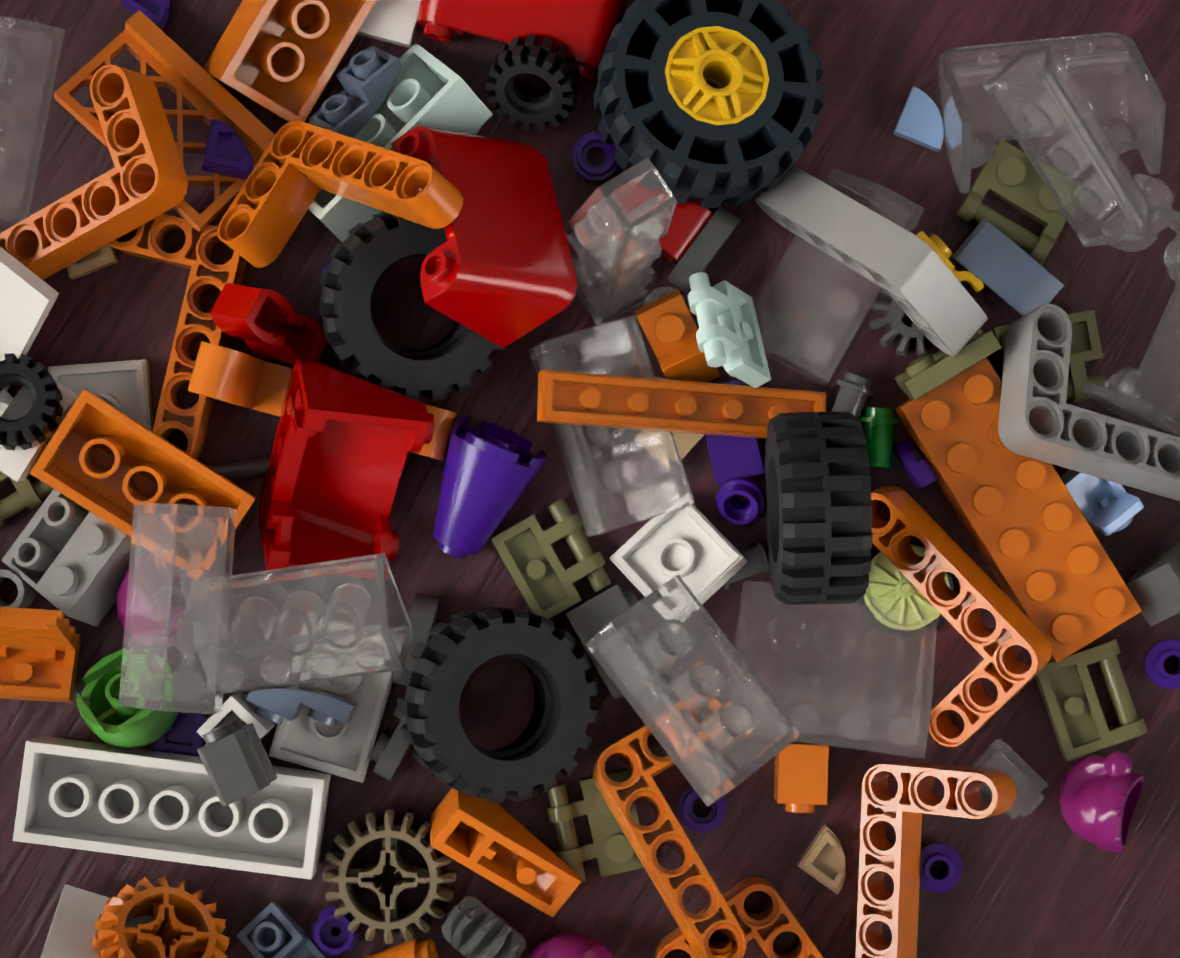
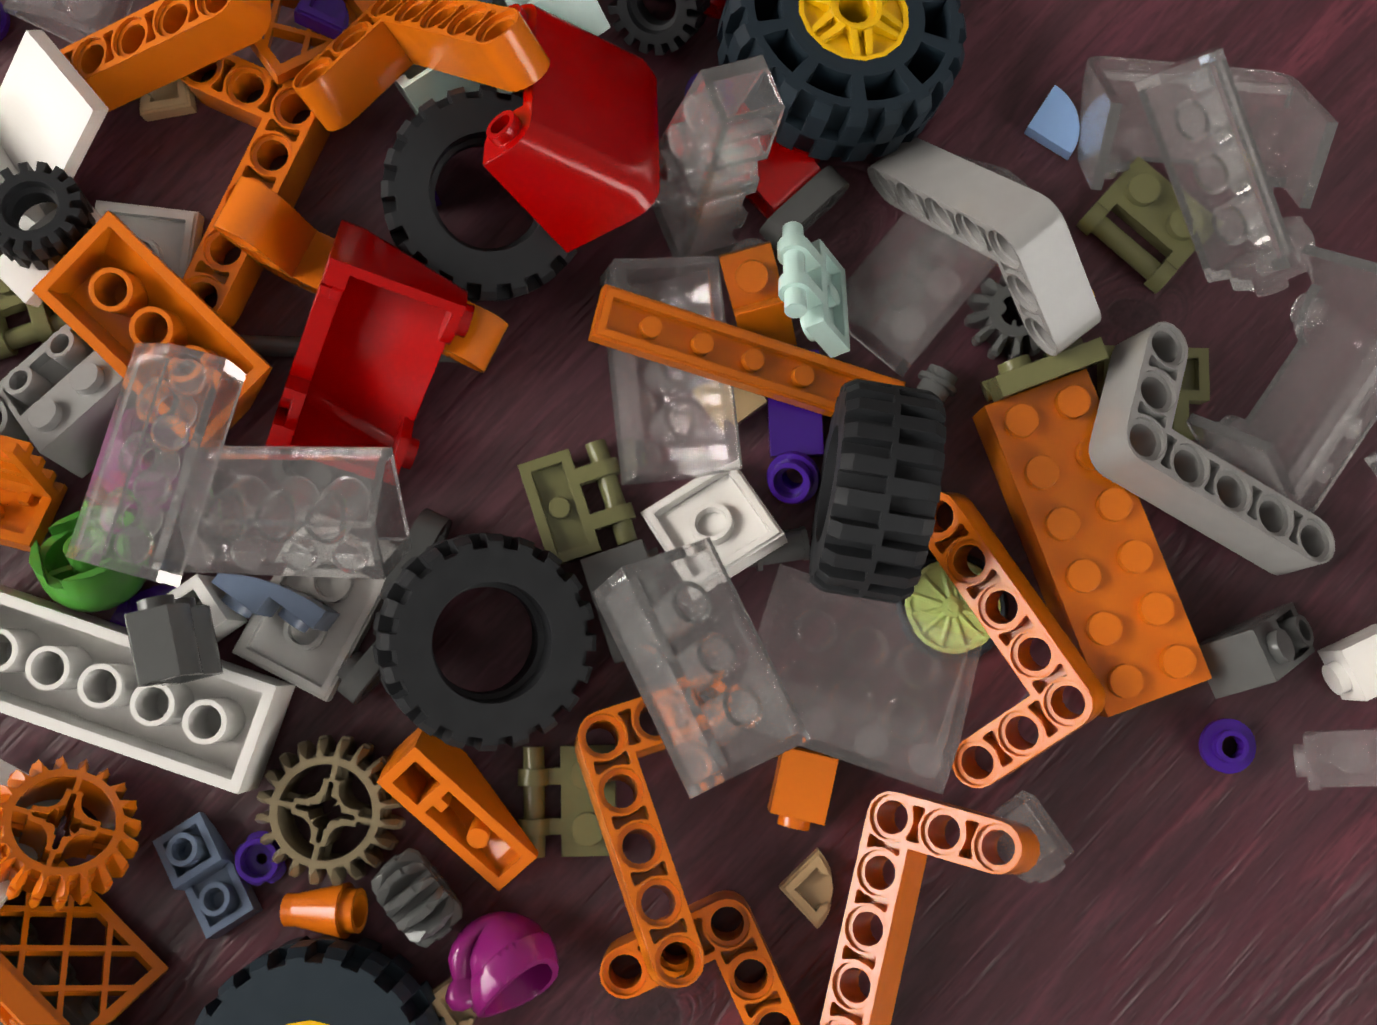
camera: 15 degrees right, 5 degrees down
(268, 324) = (325, 186): red brick -> none
(481, 484) = (517, 405): dark purple cone -> none
(696, 822) = (684, 819): dark purple plate -> none
(879, 435) = (958, 426): green pin -> none
(917, 470) = (988, 483): dark purple tile -> none
(954, 870) = (946, 935): dark purple plate -> none
(1007, 269) = (1124, 287): sand blue slope -> none
(1075, 705) = (1116, 771): olive plate -> none
(1101, 799) = (1128, 880): magenta piece -> none
(1102, 502) = (1186, 552): light blue bracket -> none

